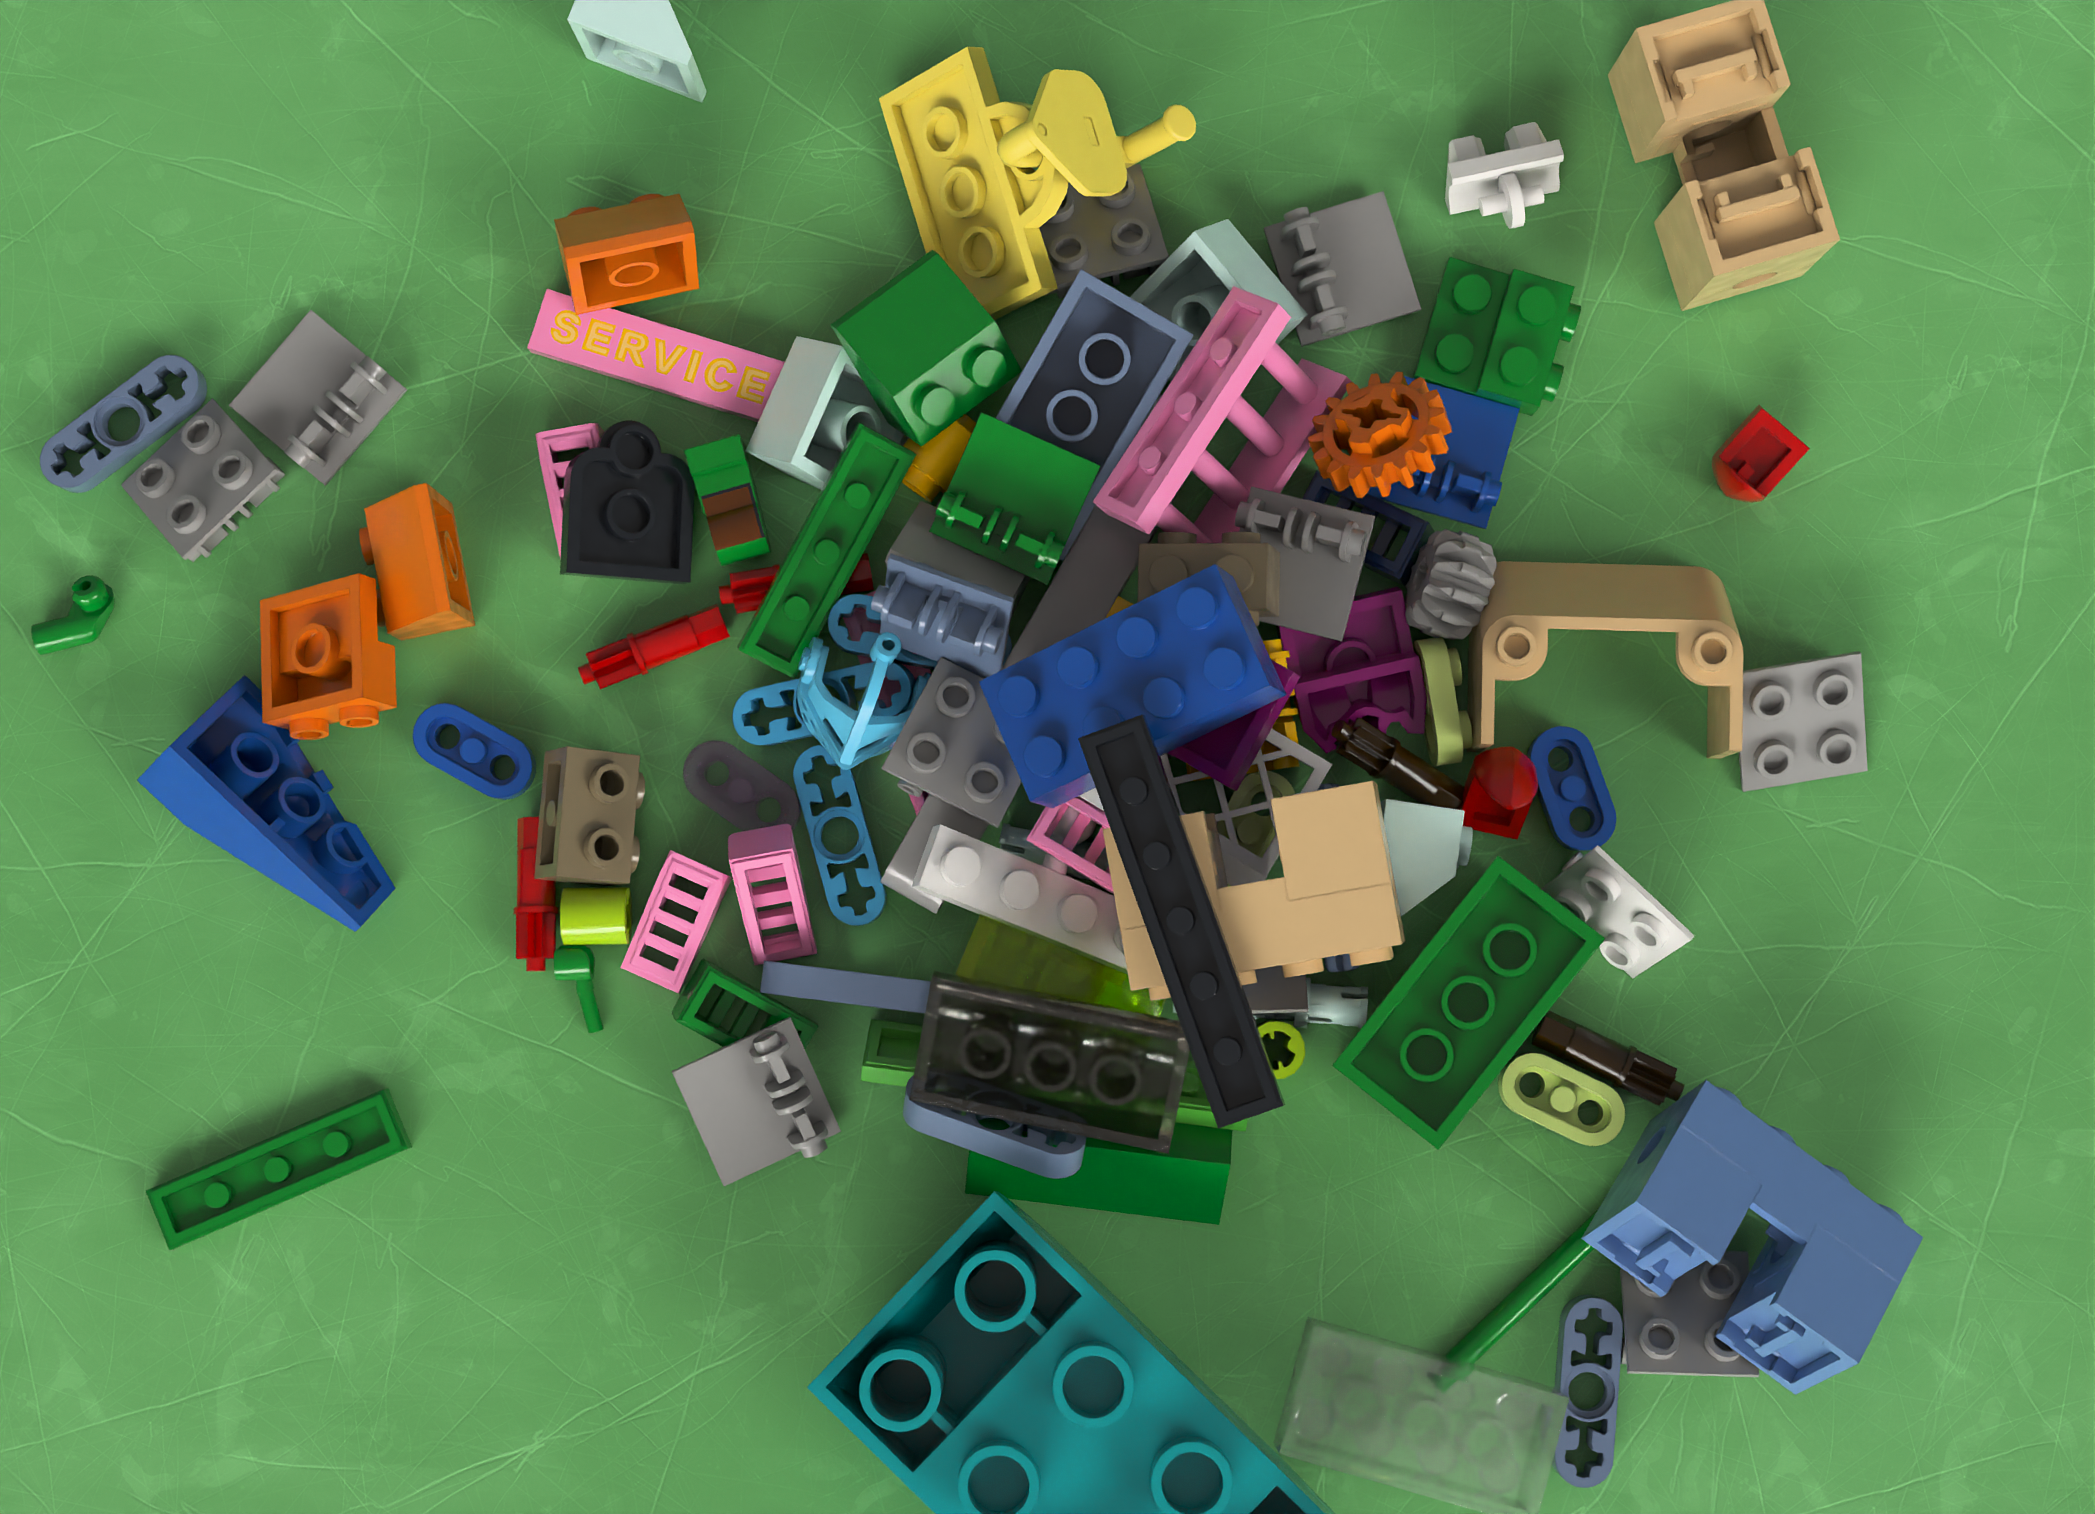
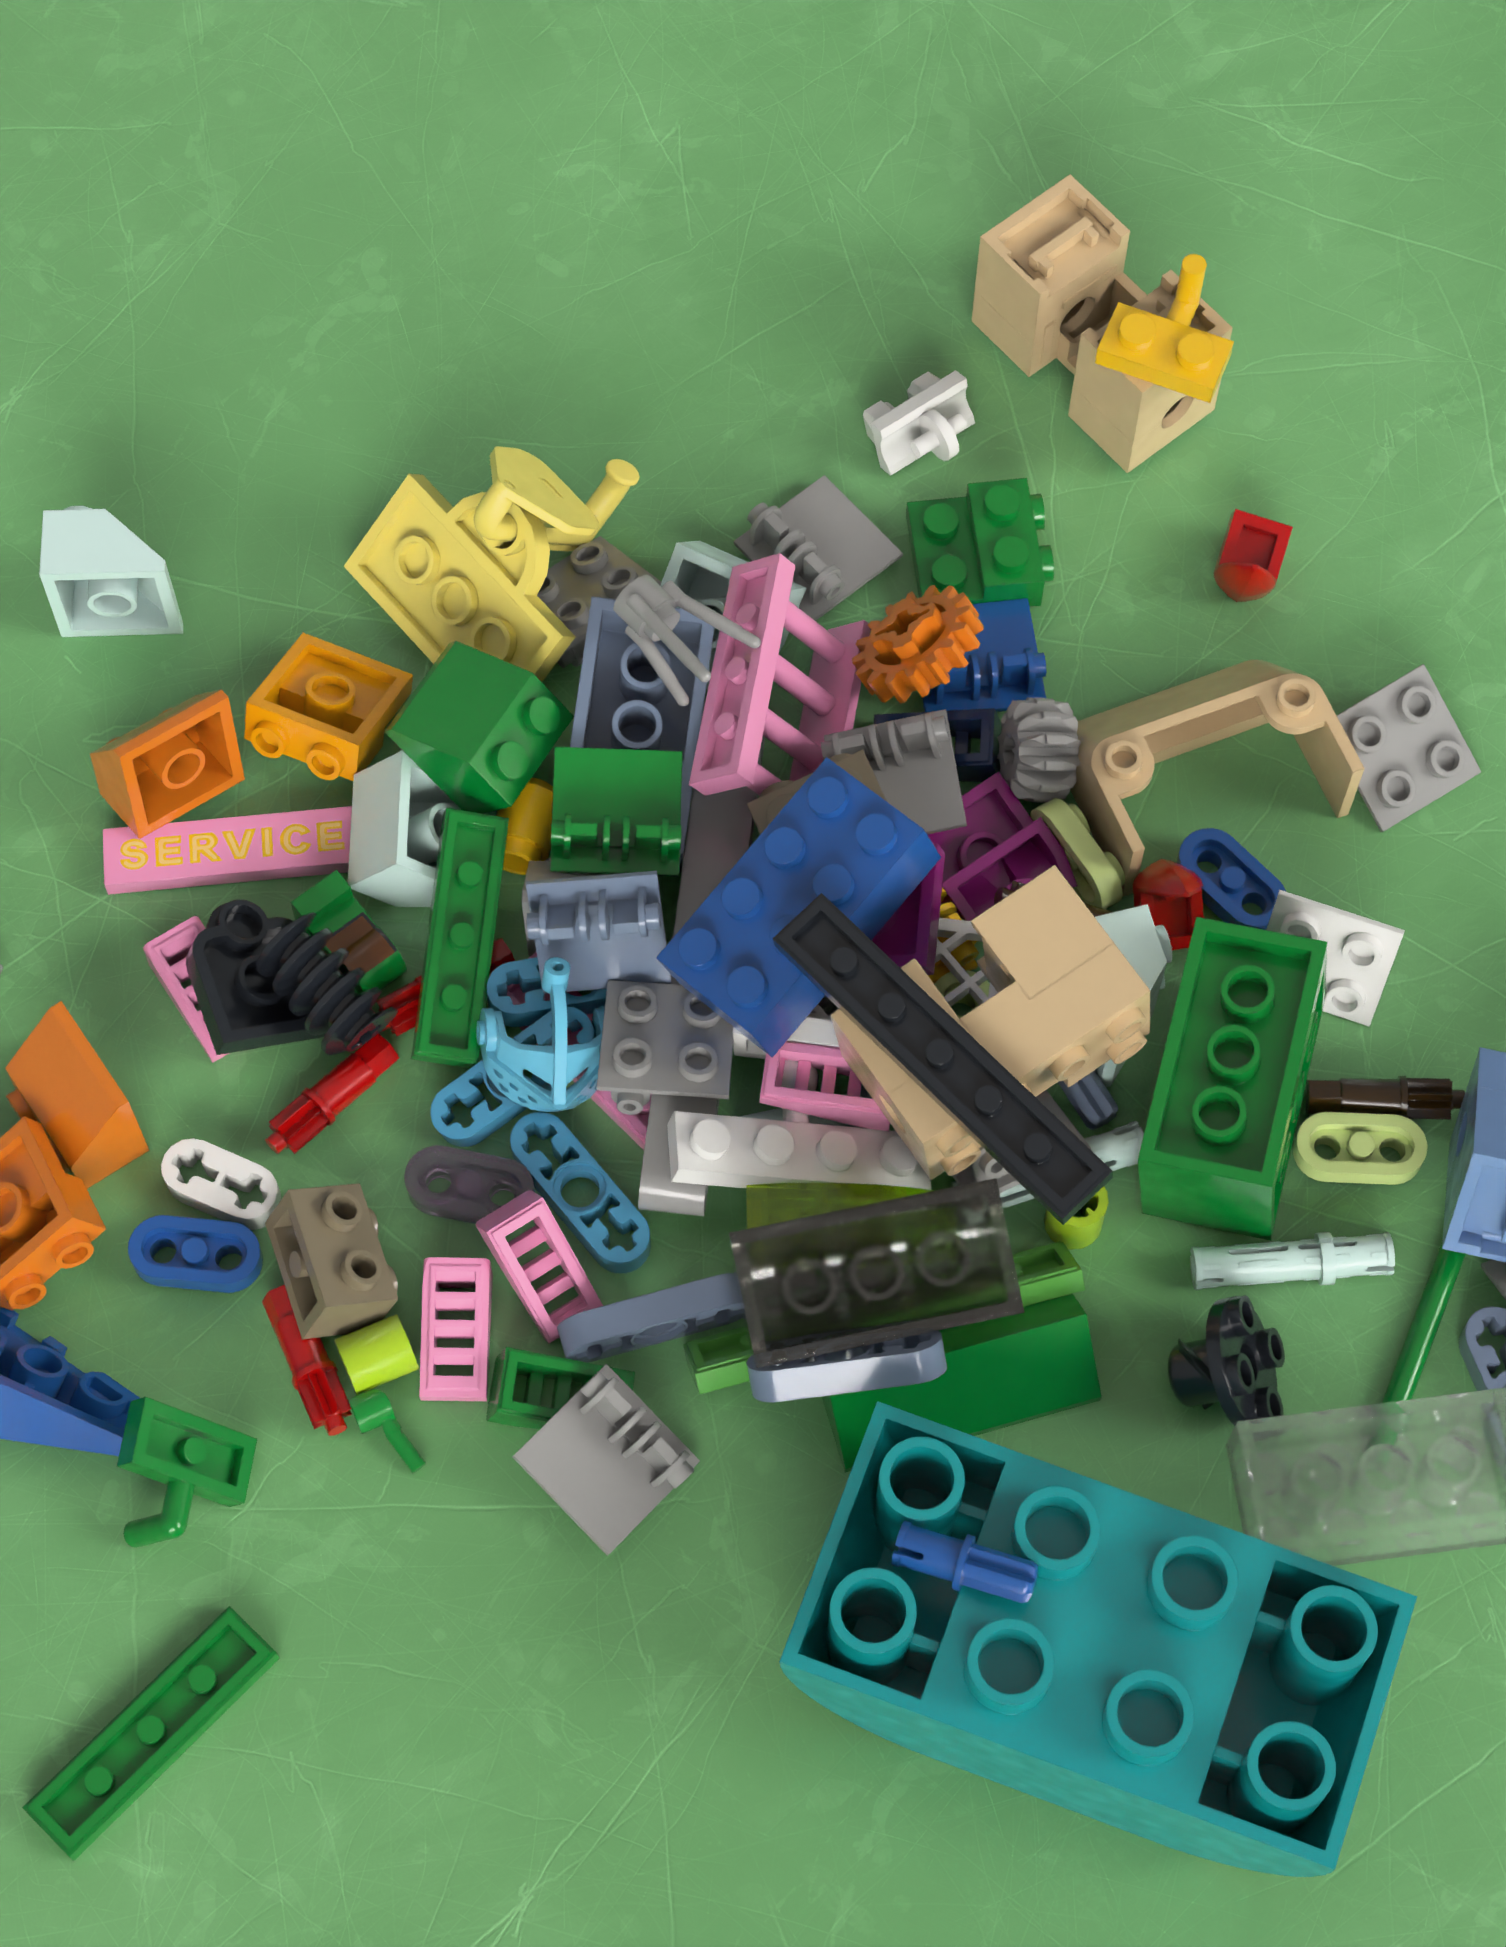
camera: 25 degrees left, 20 degrees down
(389, 948) = (186, 1456): none -> green plate
(513, 701) = (227, 1170): none -> white beam
(679, 555) = (321, 988): none -> black piece
(800, 249) = (325, 707): none -> light orange plate
(999, 1380) = (965, 1563): none -> blue axle
(1125, 320) = (652, 617): none -> light grey plant
(1342, 1260) = (1231, 1364): none -> black plate
(1449, 1178) = (1309, 1259): none -> light aqua pin
(1760, 239) = (1168, 348): none -> yellow plate

